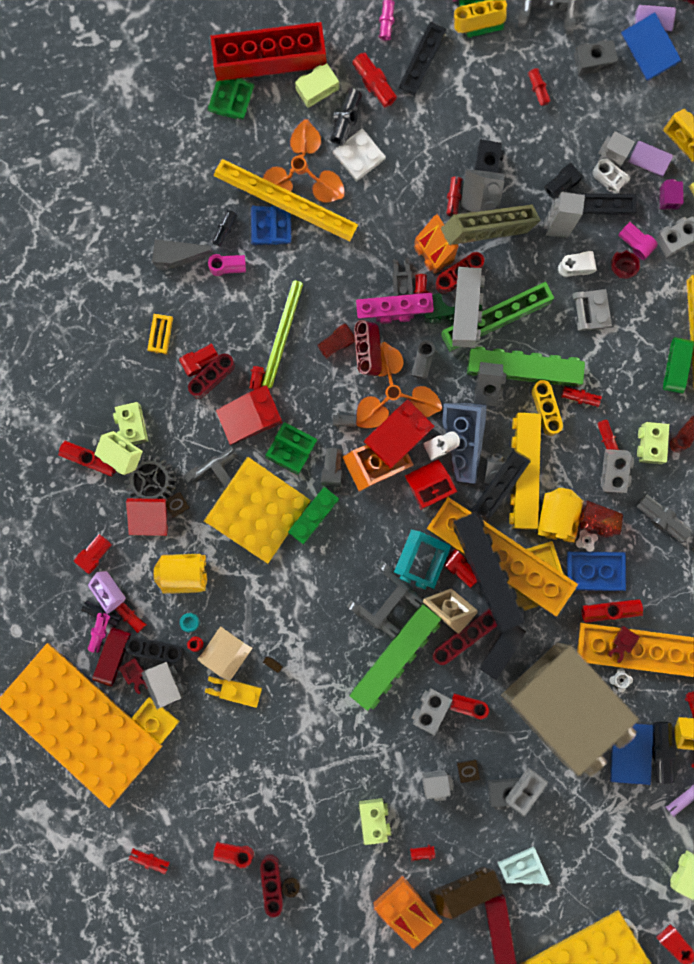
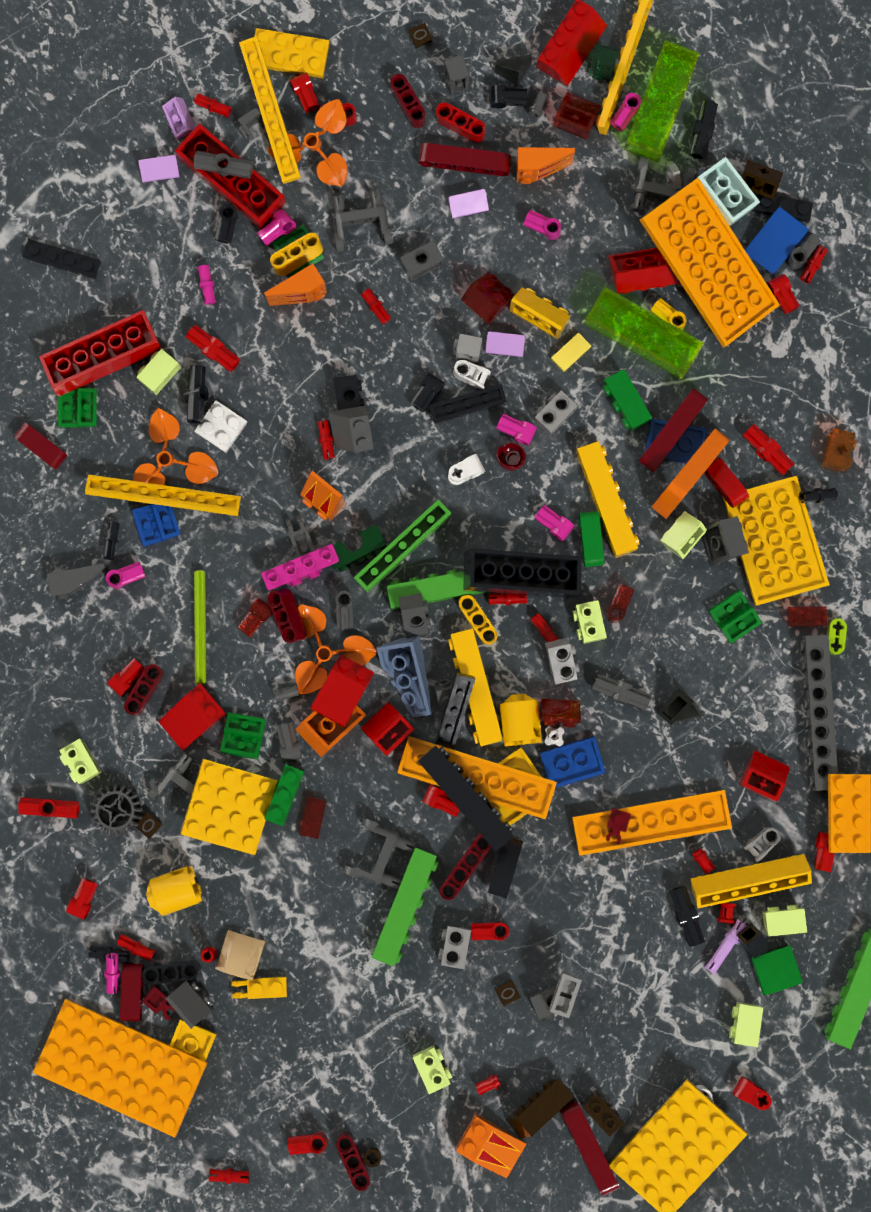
camera: 20 degrees left, 0 degrees up
(106, 591) = (106, 931): lavender slope -> none
(118, 453) = (77, 794): yellowish green brick -> none
(147, 517) = (124, 846): tile -> none
(167, 335) = (81, 666): yellow tile -> none
(186, 121) = (40, 446): none -> dark red beam
(189, 622) = (196, 935): teal tile -> none
(256, 377) = (188, 677): red pin -> none
(273, 664) = (289, 950): dark brown tile -> none
(333, 546) = (312, 817): none -> clear red plate
(408, 556) = (386, 805): teal window -> none
(420, 284) = (320, 537): red pin -> none
(422, 59) = (253, 313): black plate -> none
(437, 785) = (480, 1015): light grey brick -> none
(441, 445) = (387, 688): white piece -> none
(450, 275) = (356, 504): red beam -> none
(451, 609) = (443, 843): tan slope -> none
(466, 307) = (369, 548): light grey brick -> none
(471, 47) = (300, 288): none -> orange slope
(490, 224) = (367, 462): olive brick -> none
(524, 868) = (588, 1068): light aqua wing -> none
(525, 916) = (602, 1113): none -> dark brown brick
(564, 214) = (435, 431): light grey brick -> none
(571, 709) = (582, 905): dark tan brick -> none
(598, 310) = (499, 509): light grey plate -> none
(605, 375) = (522, 573): none -> black brick
(624, 609) = (609, 790): red piece -> none
(627, 680) = (632, 859): white plate -> none
(634, 760) = (657, 926): blue tile -> none
(647, 109) = (488, 297): none -> clear red slope
(650, 343) = (558, 526): none -> dark pink piece
(651, 46) = (472, 233): blue tile -> none
(671, 194) = (535, 374): magenta brick -> none

